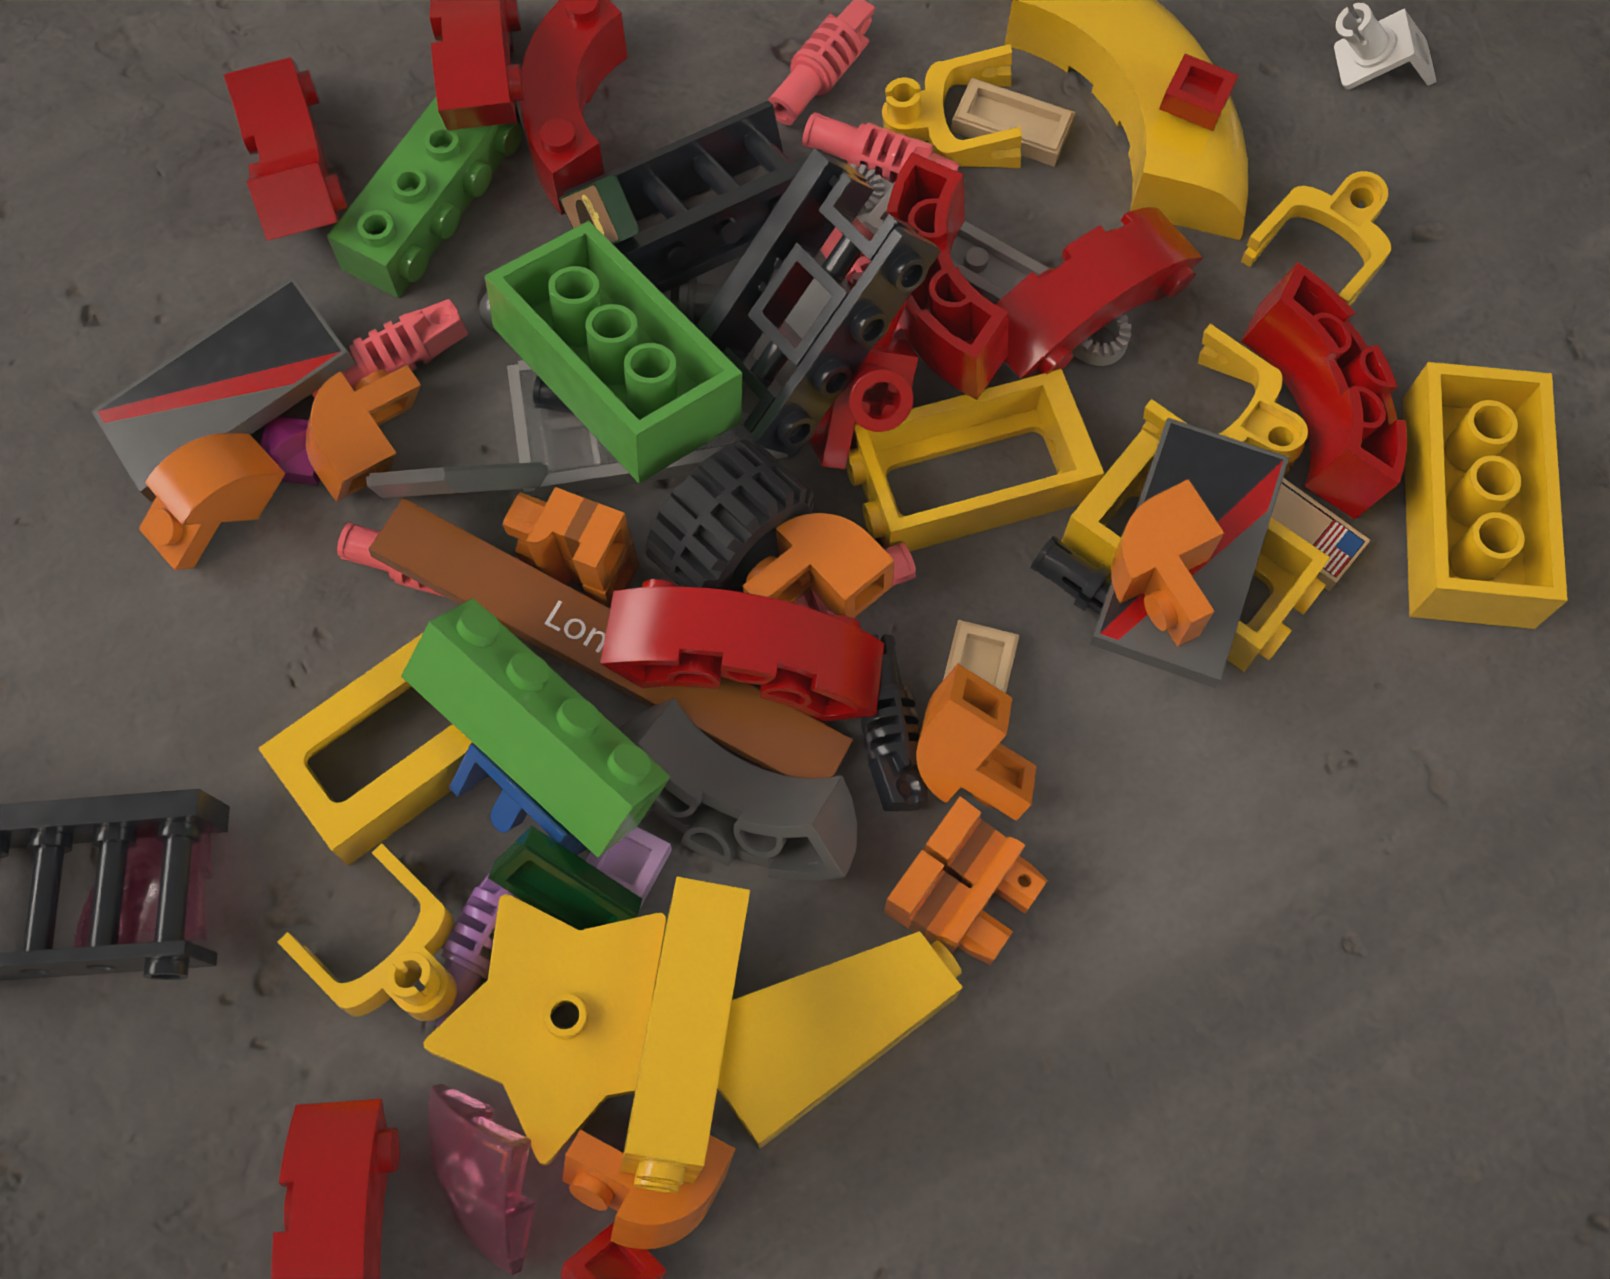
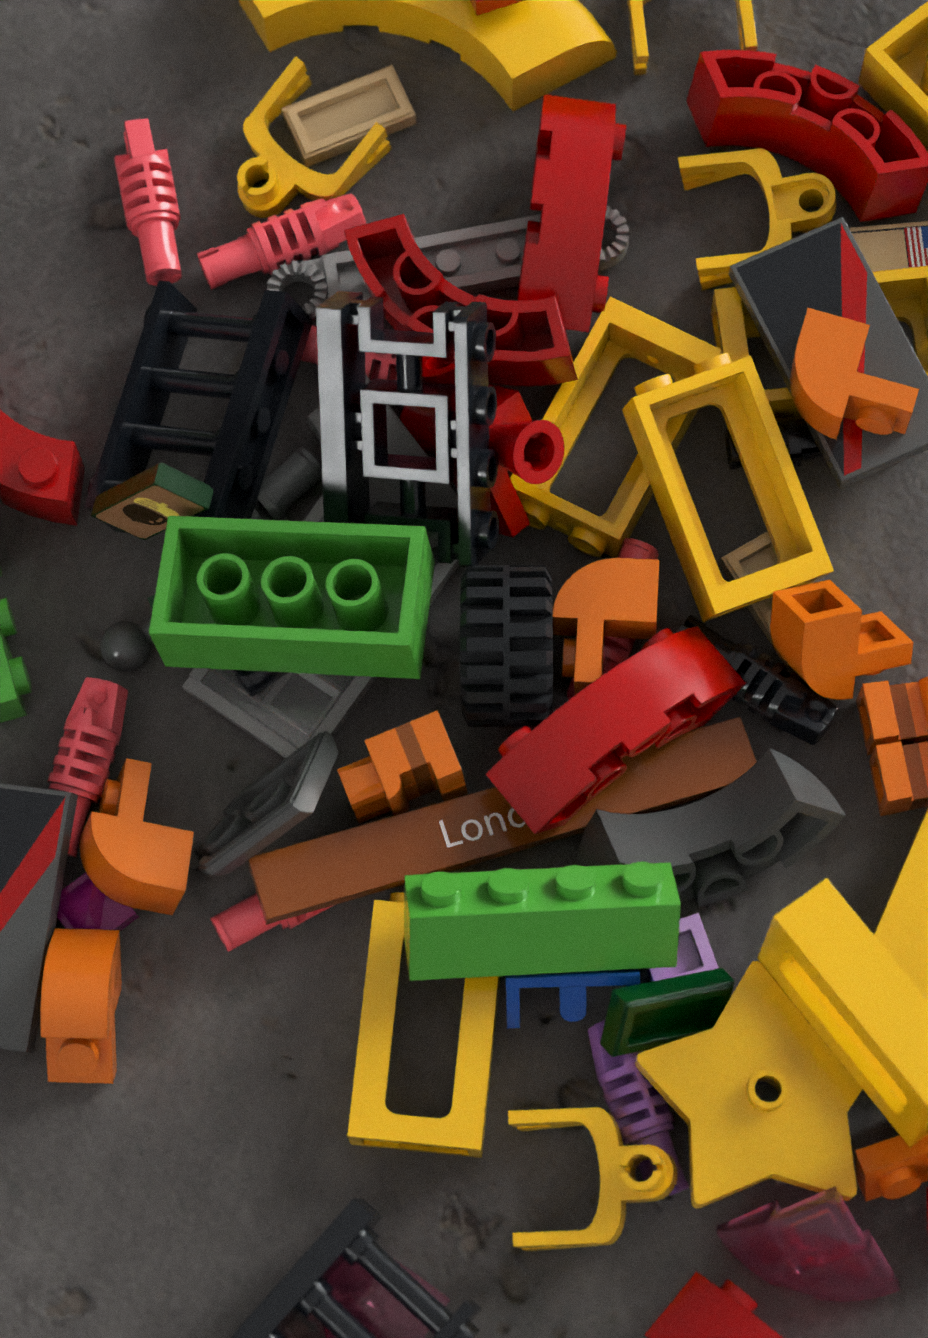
camera: 40 degrees left, 5 degrees up
(1077, 491) = (767, 465): none -> yellow piece

